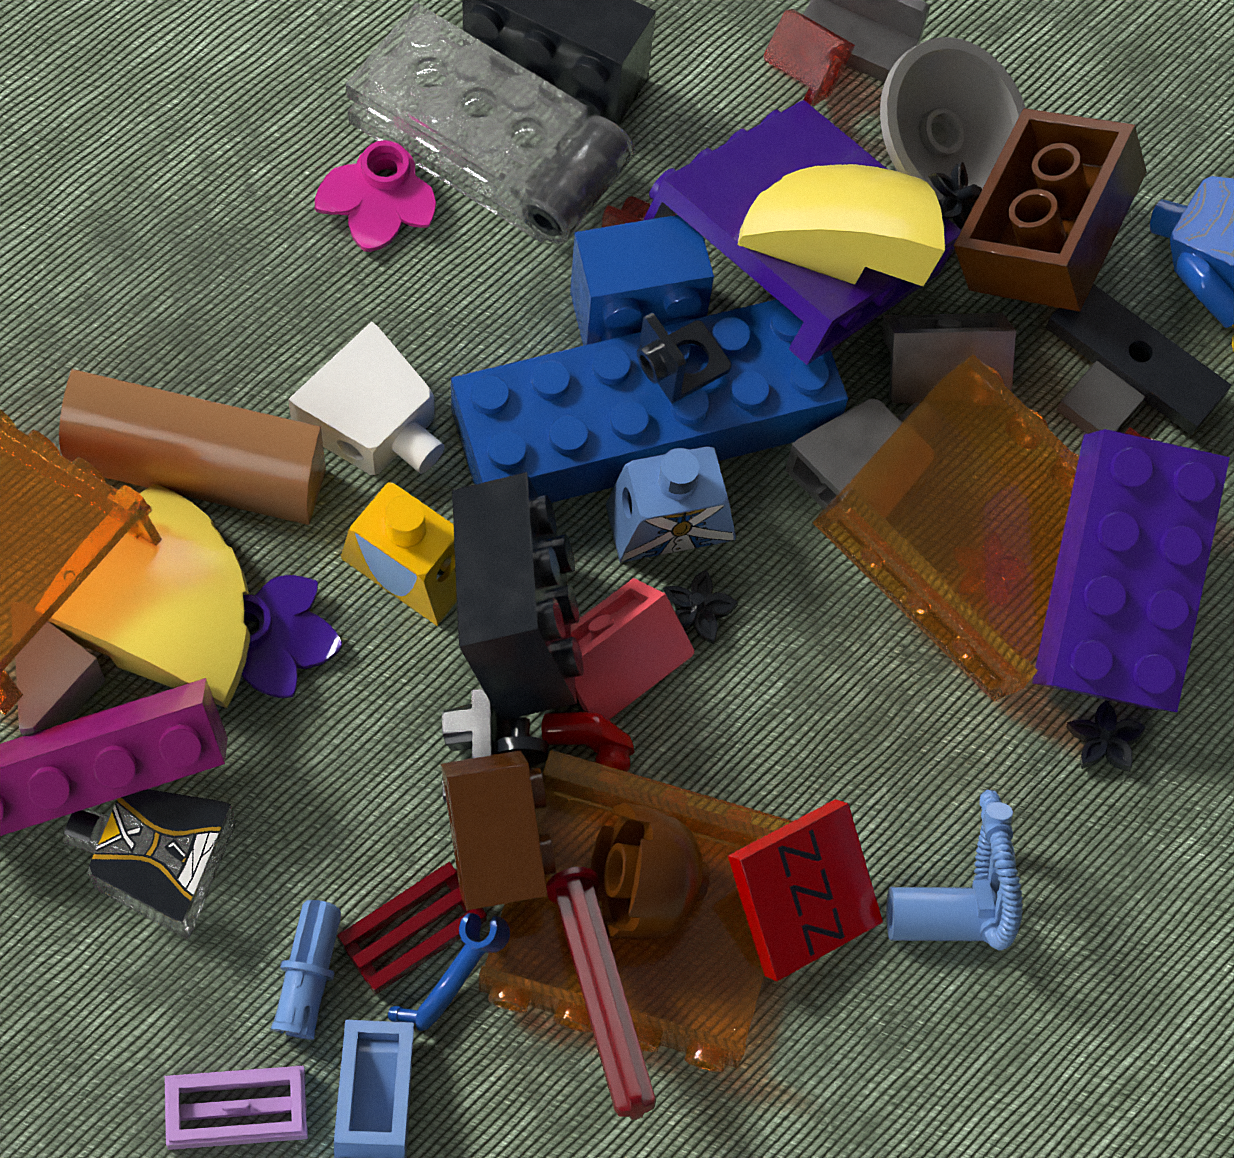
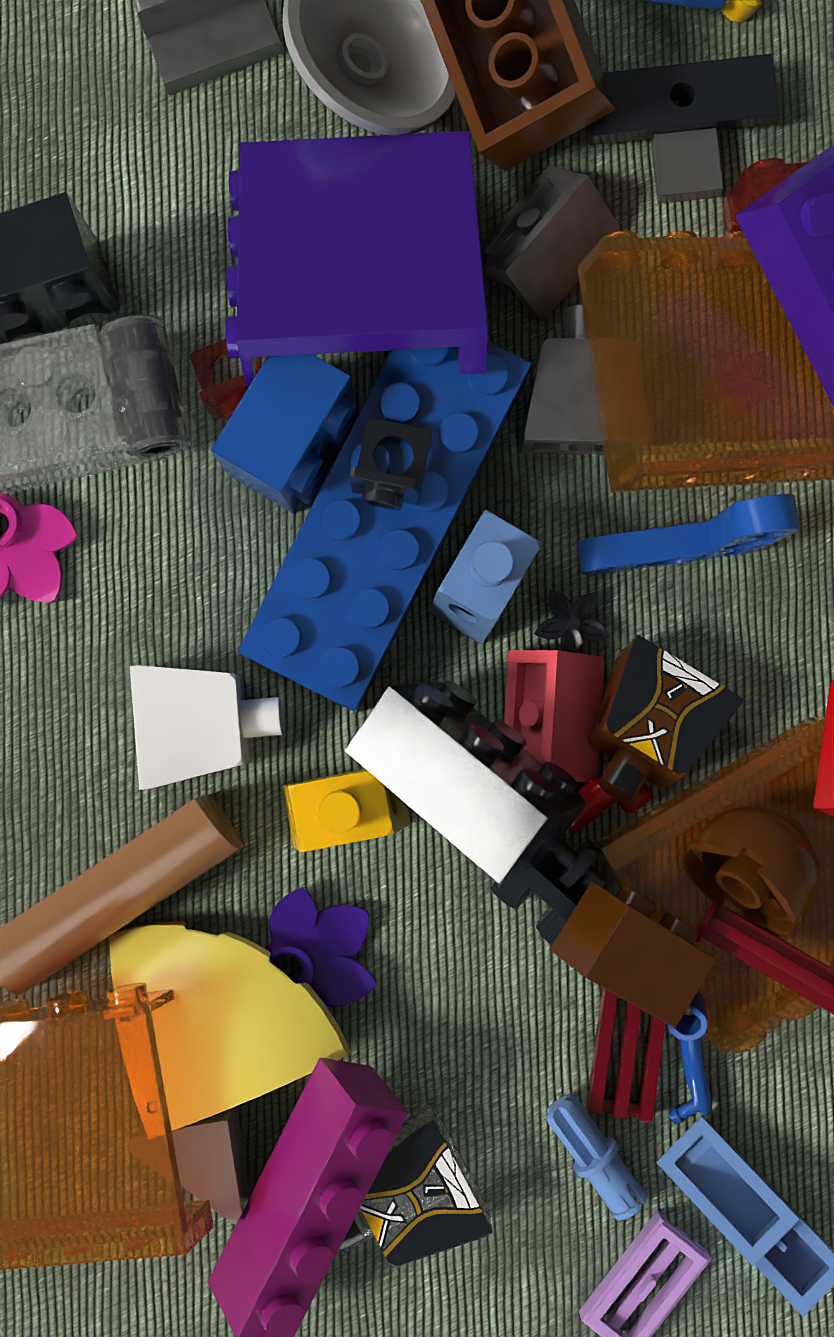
camera: 40 degrees left, 20 degrees up
(685, 714) = (656, 719): none -> torso
(808, 54) = (196, 95): clear red bracket -> none
(847, 221) = (404, 218): light yellow brick -> none
(866, 643) = (734, 531): none -> blue beam
(957, 195) = (436, 106): black plant -> none

